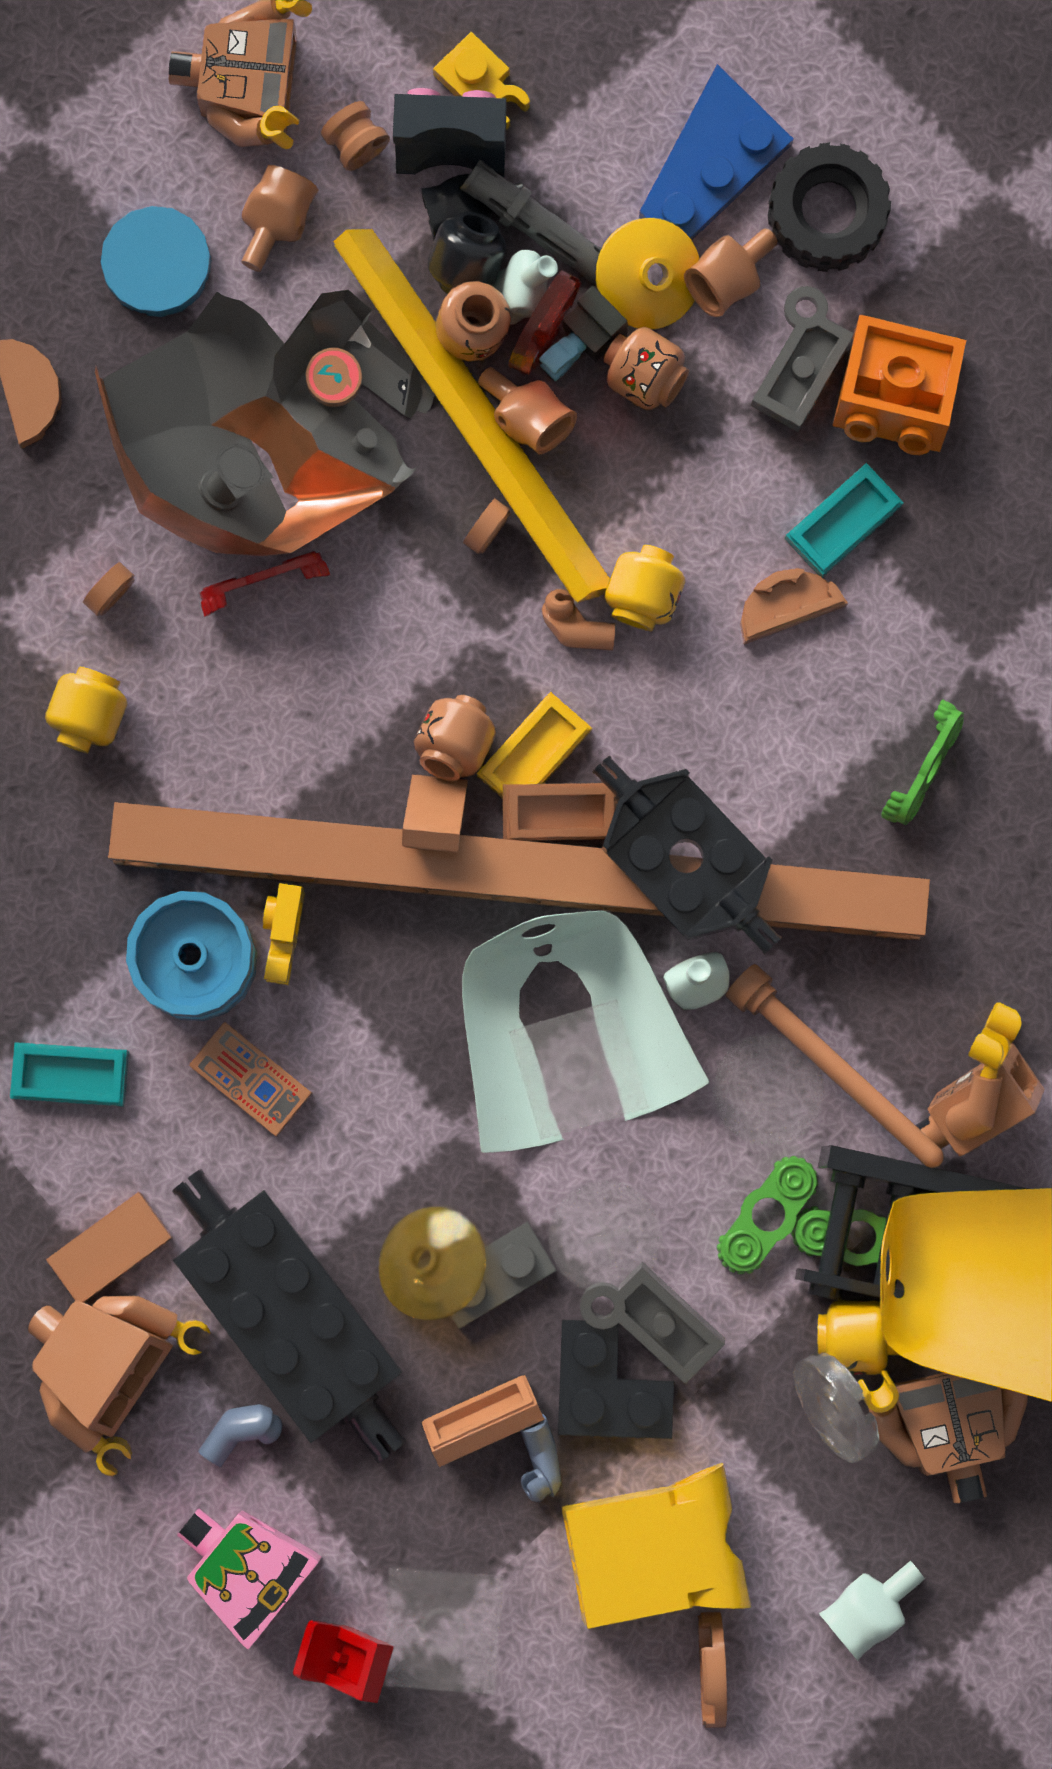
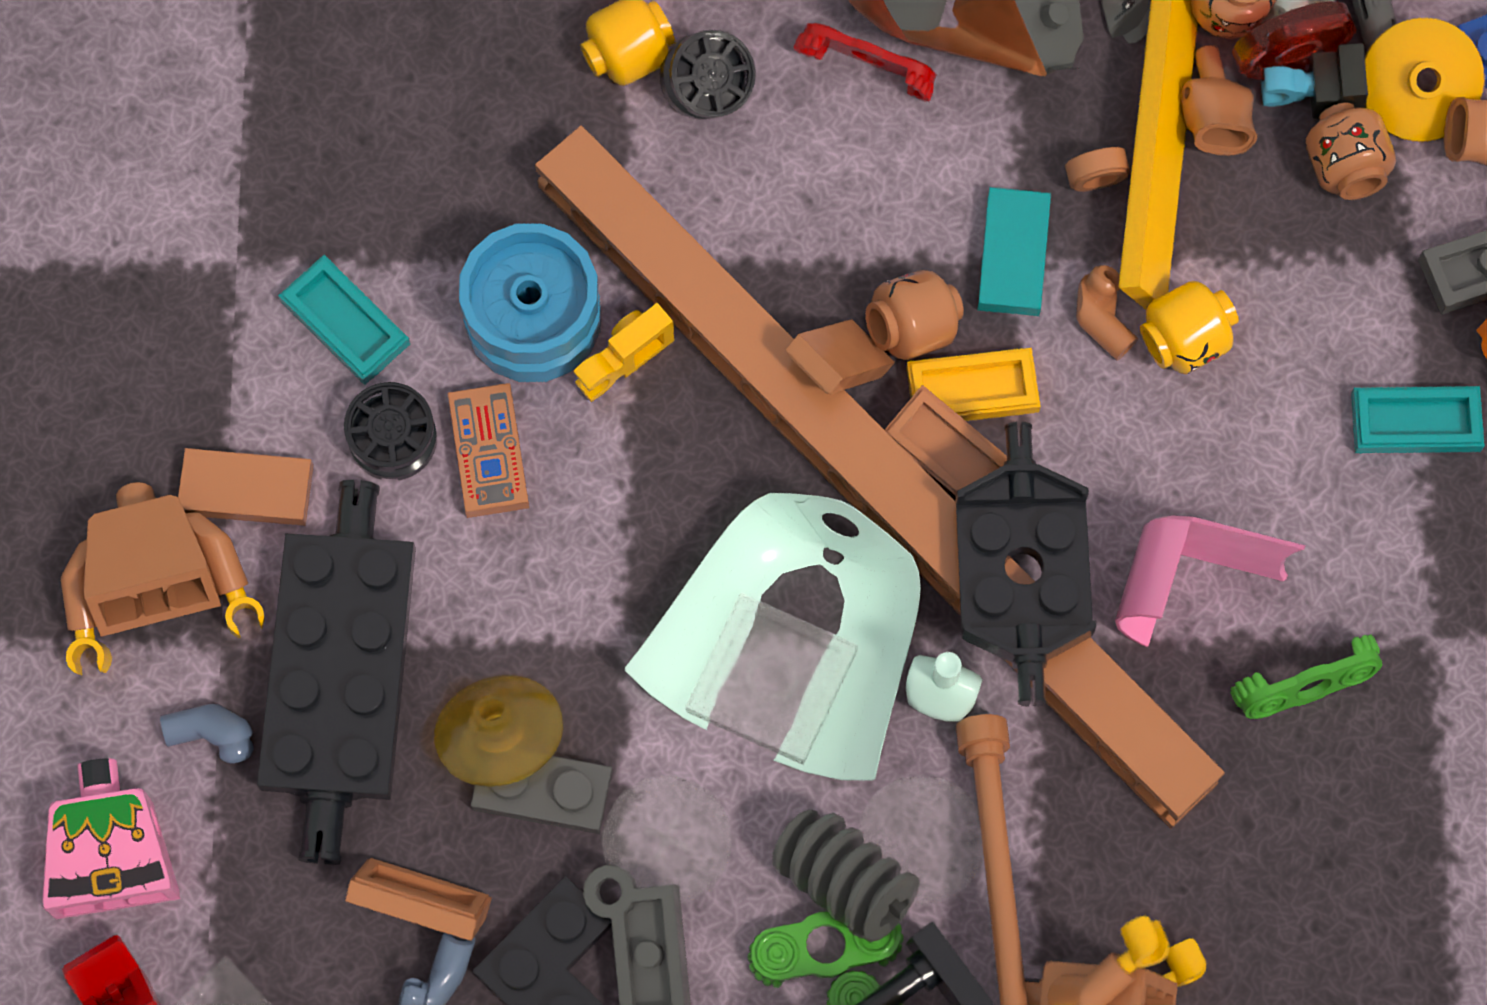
camera: 45 degrees right, 10 degrees down
(164, 689) = (707, 75): none -> black wheel
(174, 1125) = (391, 432): none -> black wheel
(479, 632) = (1014, 251): none -> teal tile
(746, 1164) = (845, 874): none -> dark grey piece
(769, 774) = (1159, 553): none -> bright pink piece
(786, 601) = (1306, 444): nougat tile -> none

